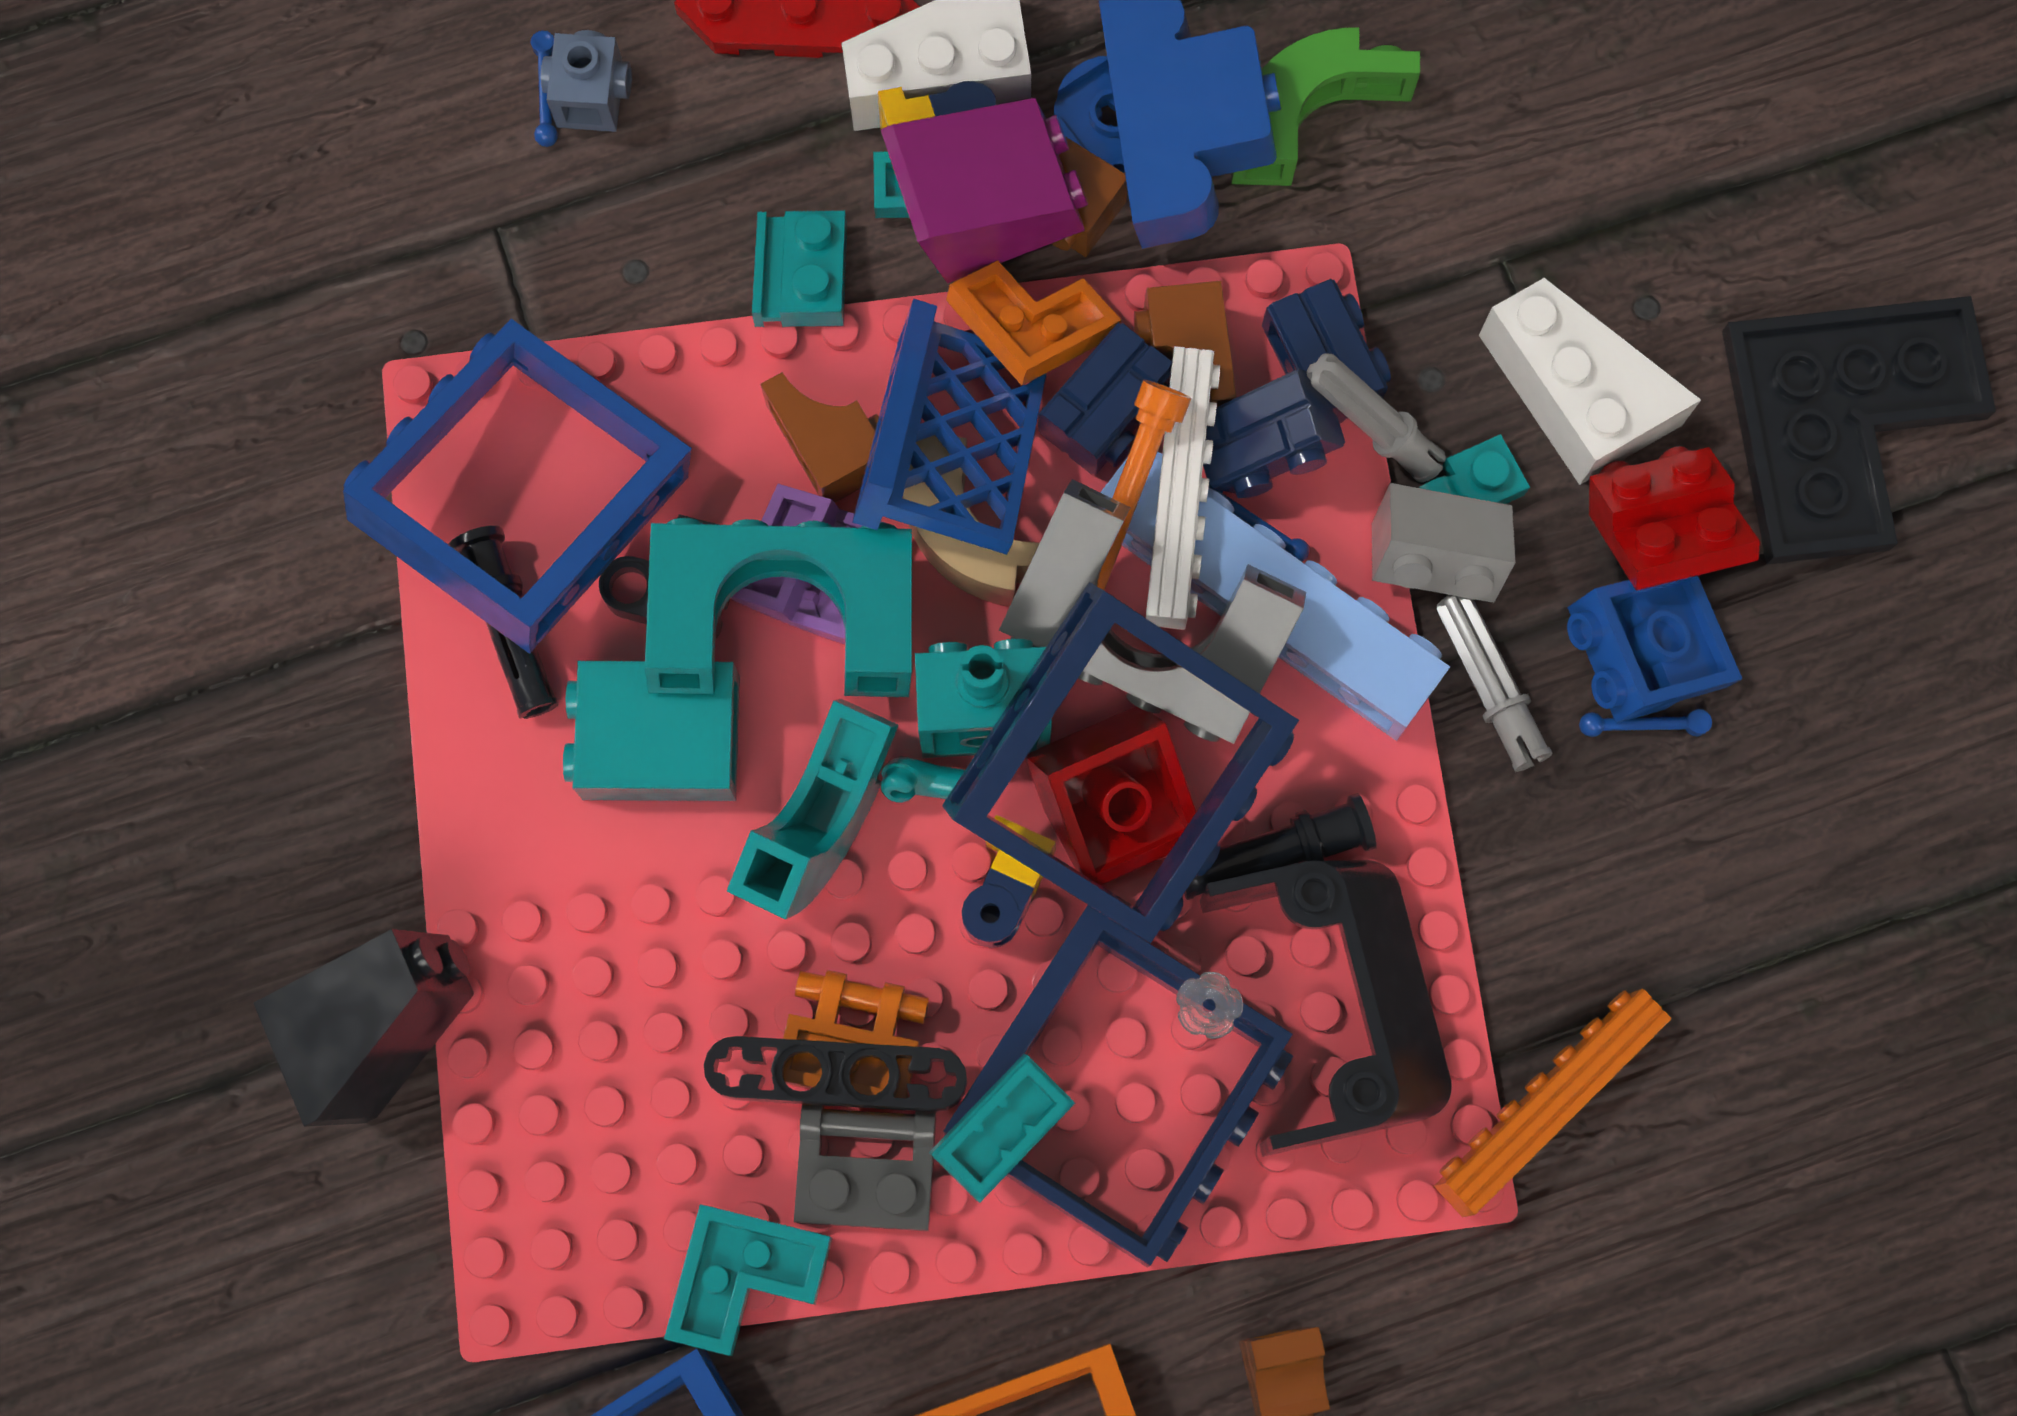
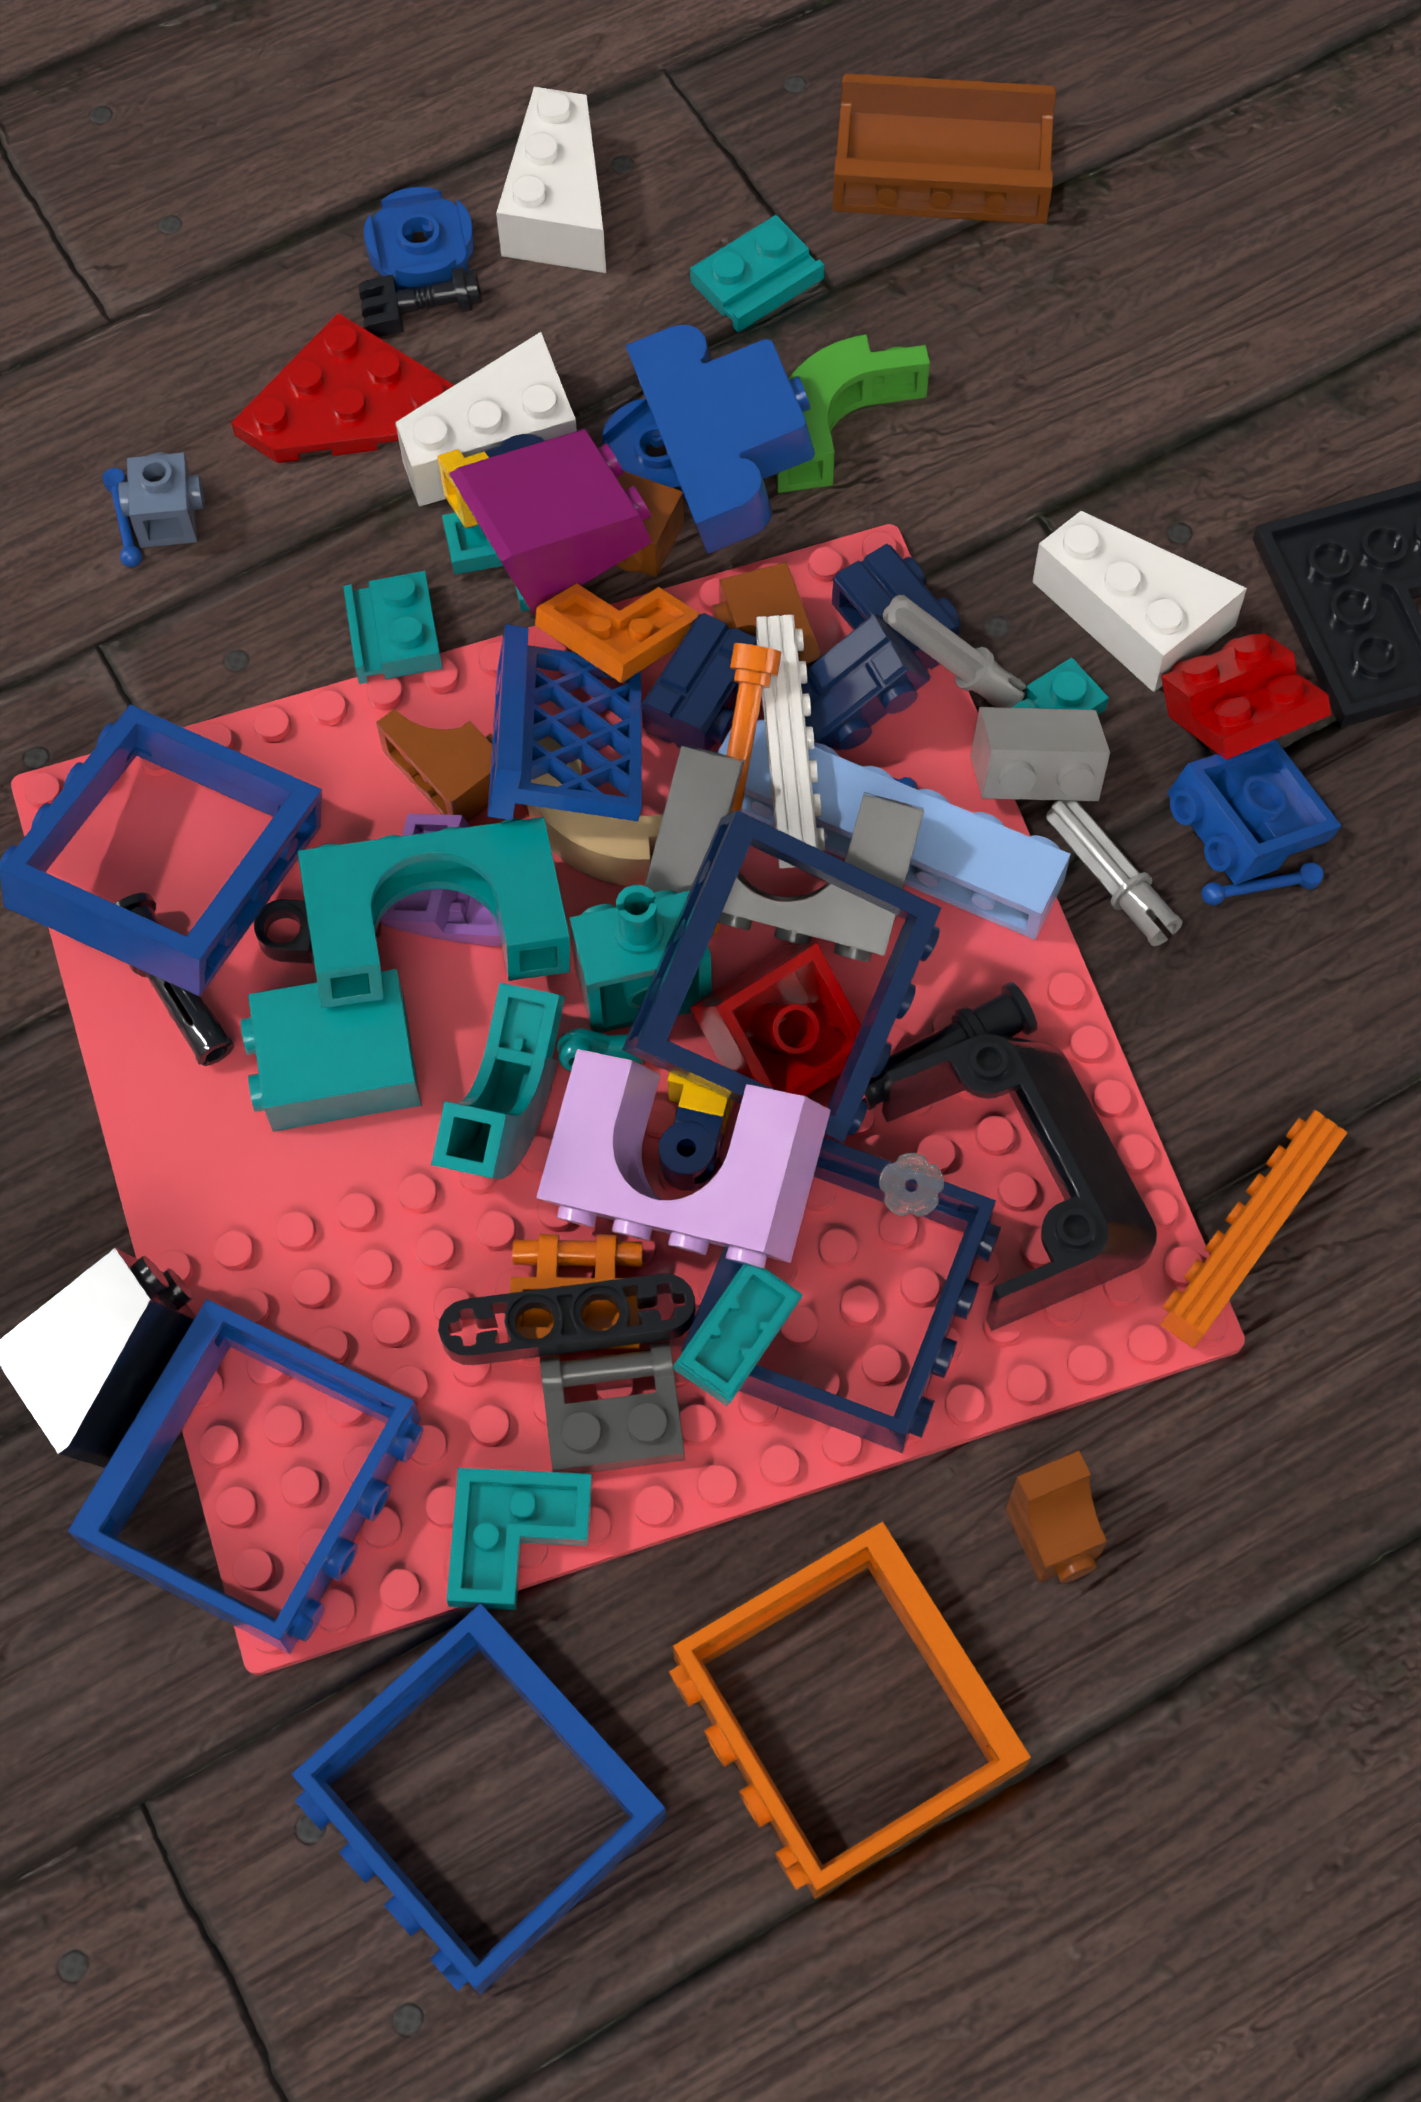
camera: 10 degrees left, 10 degrees down
(407, 1107) = (160, 1423): none -> blue window
(897, 929) = (748, 1205): none -> lavender arch

